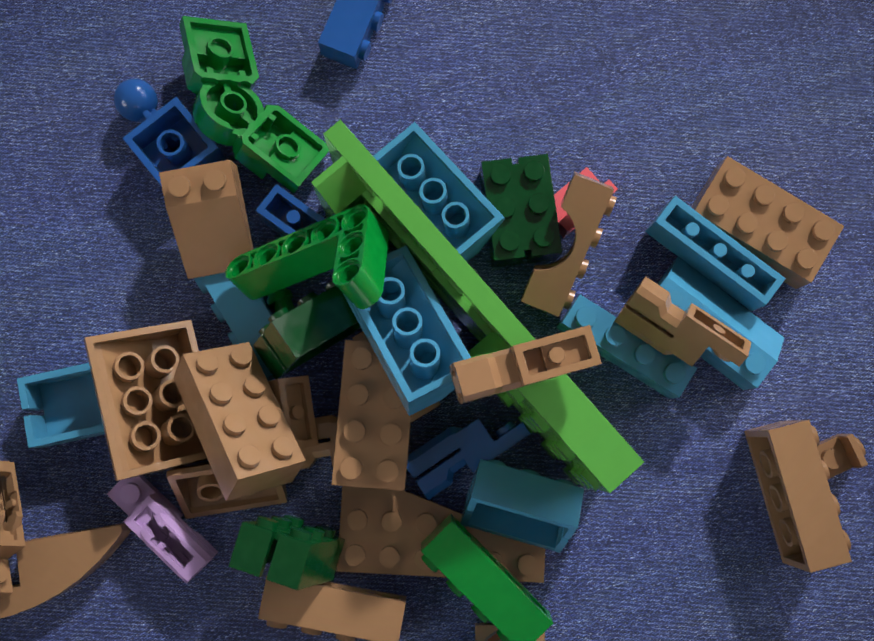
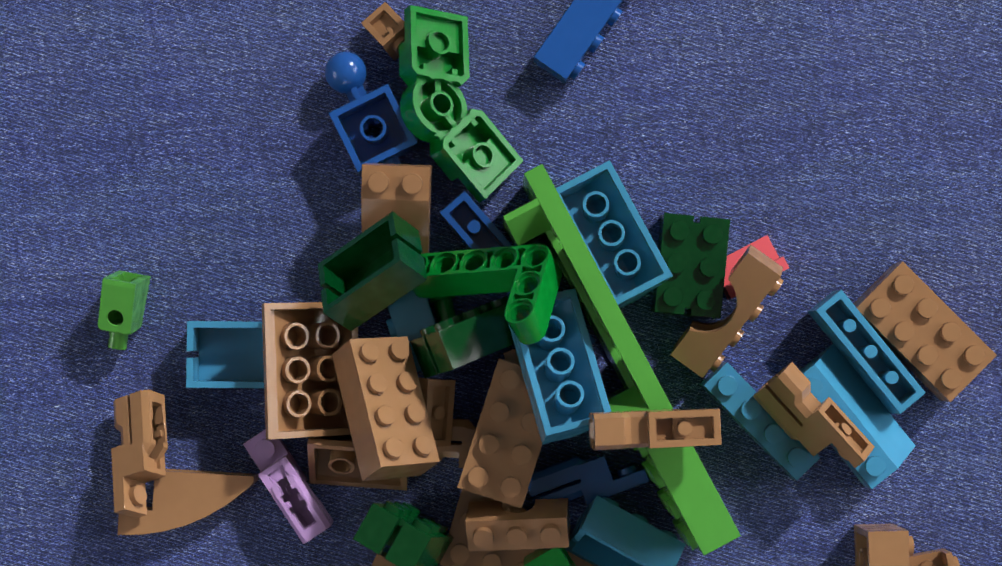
camera: 20 degrees right, 5 degrees up
(167, 51) = (386, 29): none -> medium nougat bracket
(193, 280) = (371, 271): none -> dark green piece
(428, 507) = (538, 528): none -> medium nougat arch

